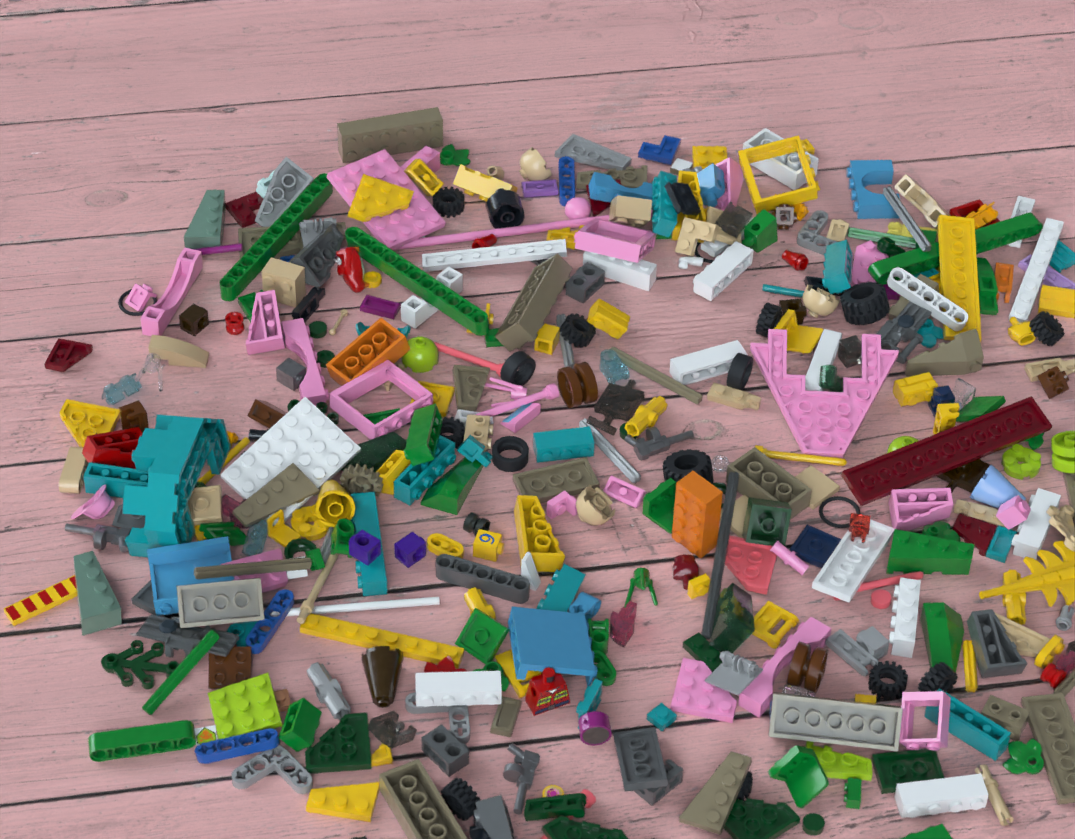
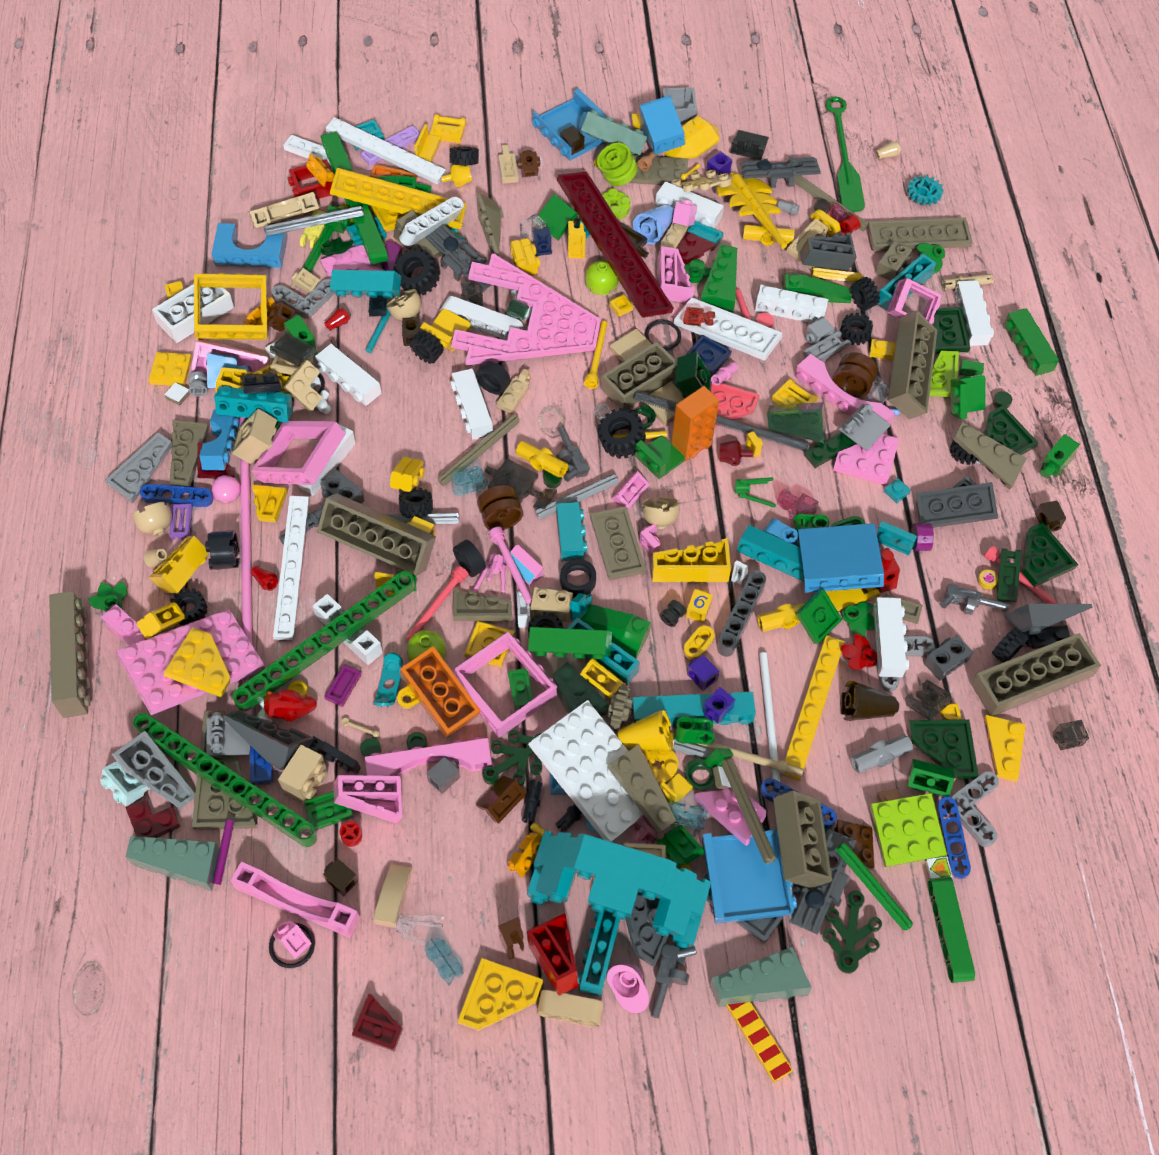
camera: 85 degrees left, 15 degrees up
(660, 153) = (152, 406): blue plate -> none

